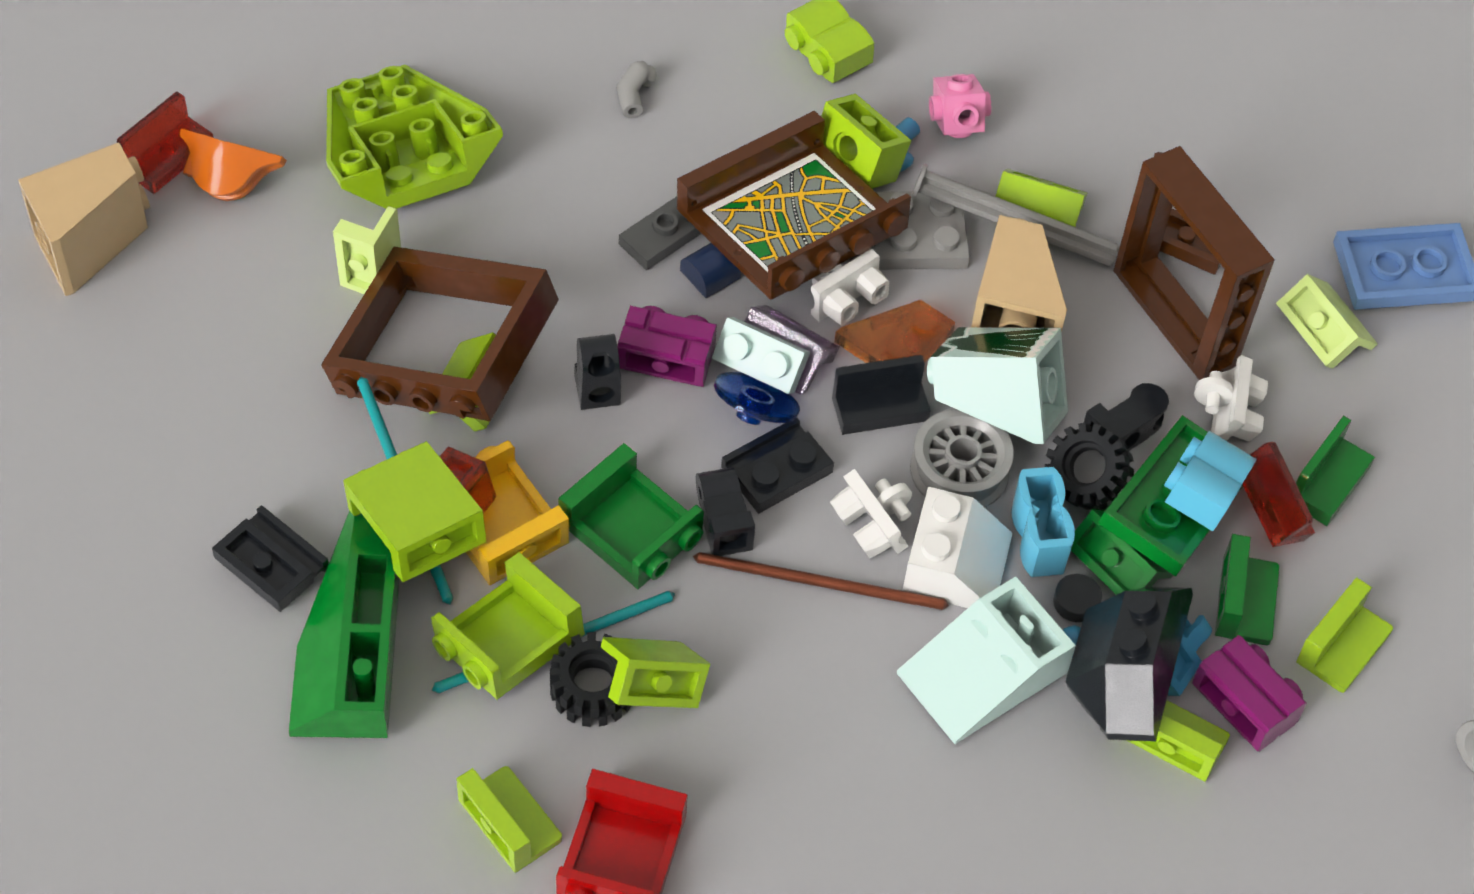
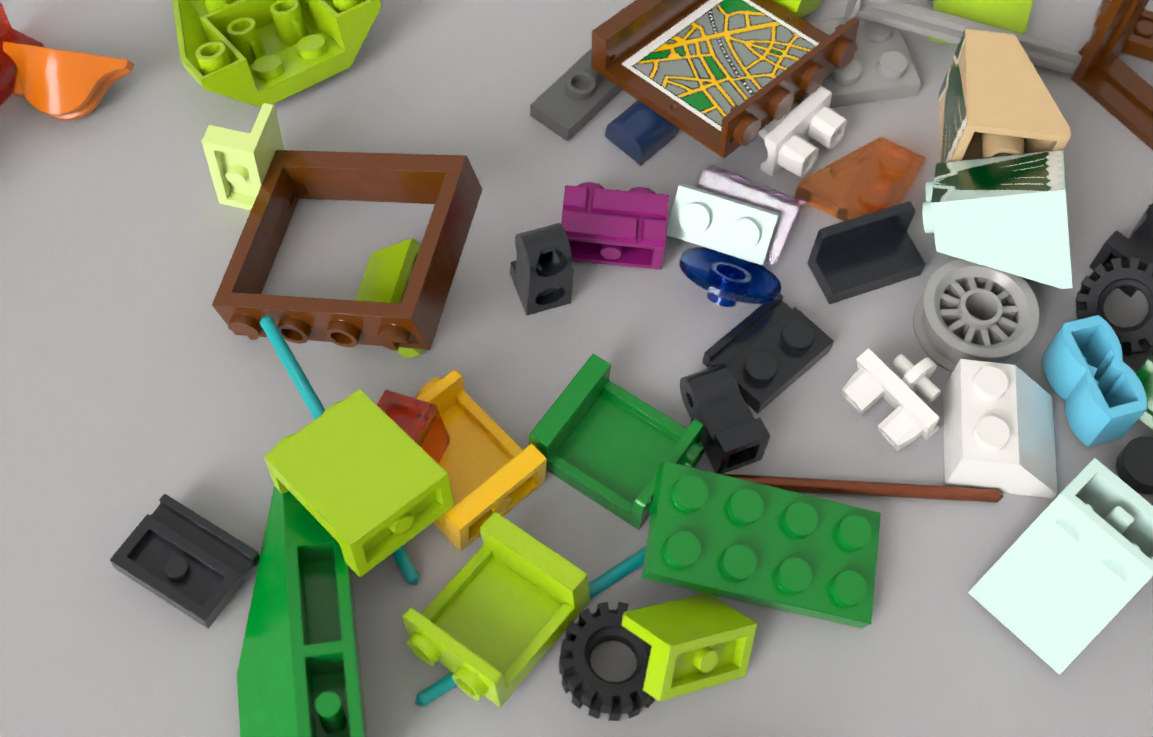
camera: 10 degrees left, 5 degrees up
(731, 609) = (762, 545): none -> green plate

